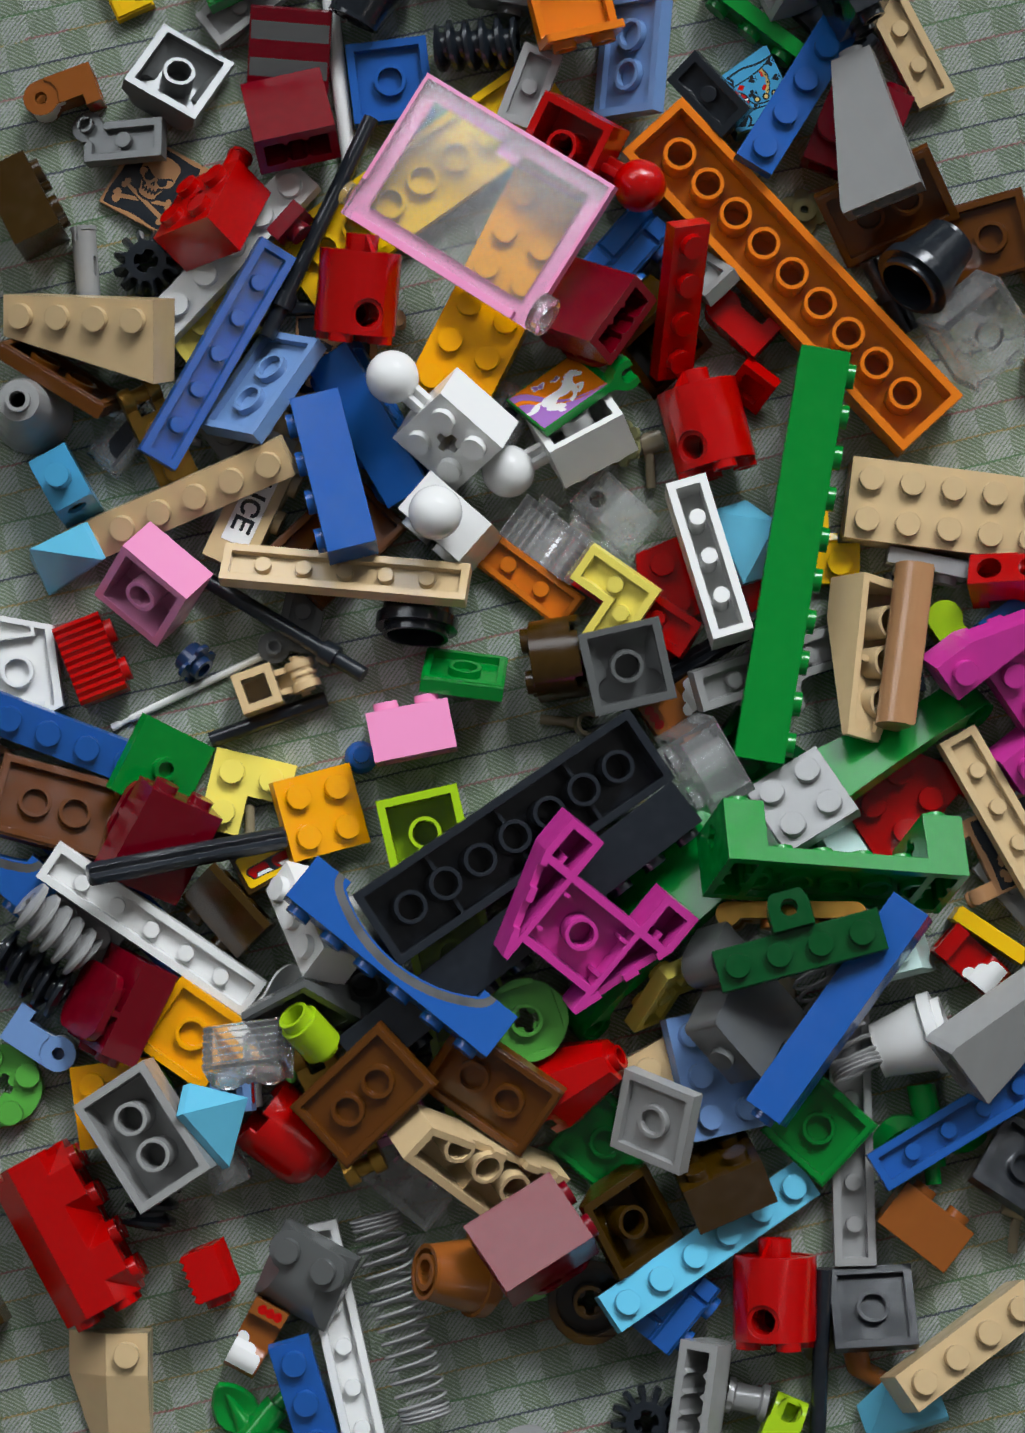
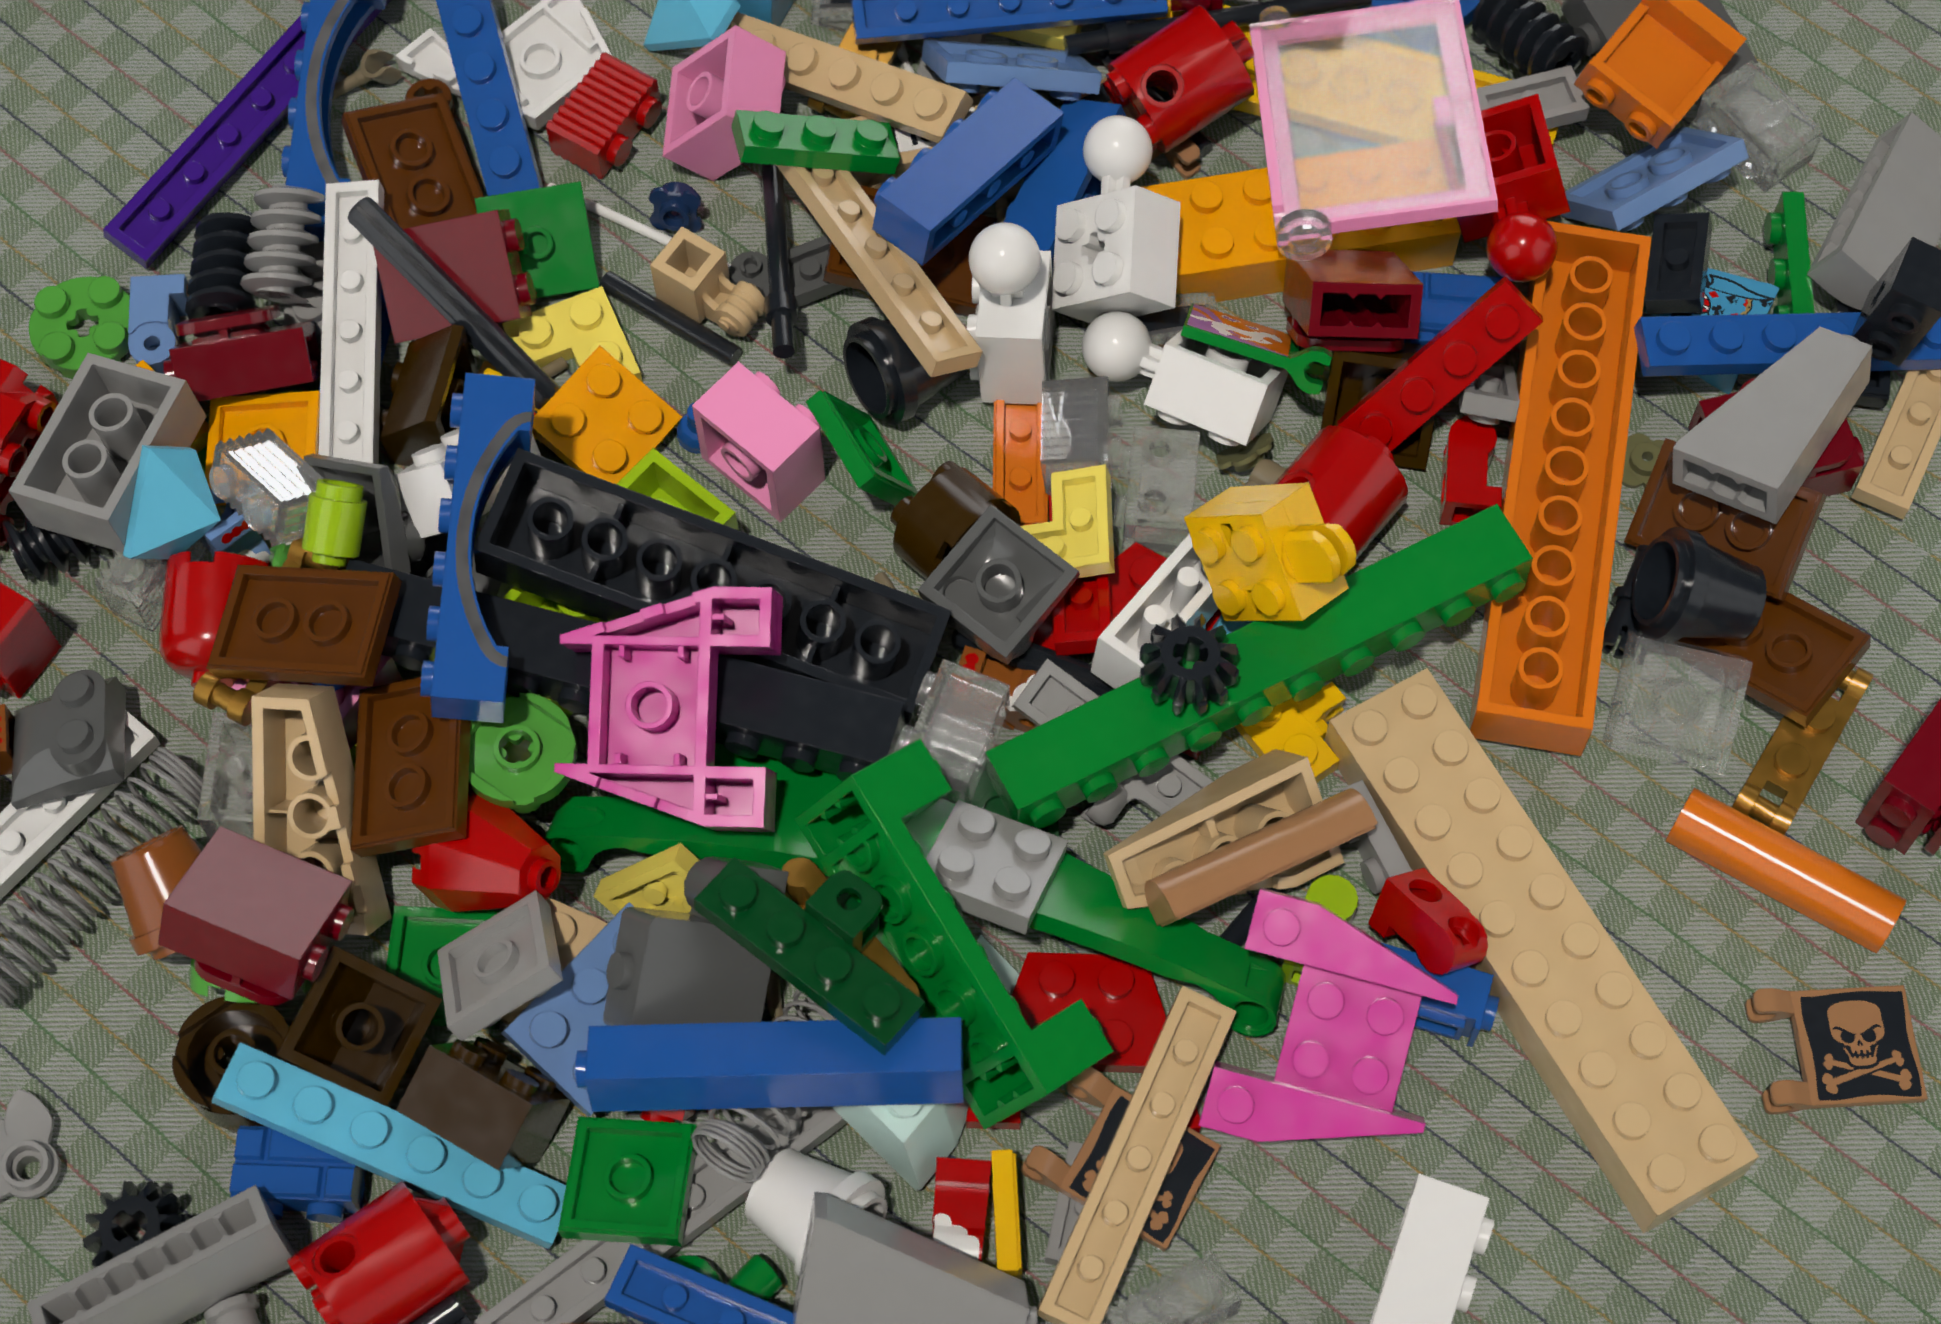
camera: 55 degrees right, 20 degrees down
(239, 554) = (815, 142): none -> green plate
(743, 506) = (1270, 552): none -> yellow brick
(755, 384) = (1415, 522): red plate -> none
(790, 608) = (1211, 669): none -> black gear

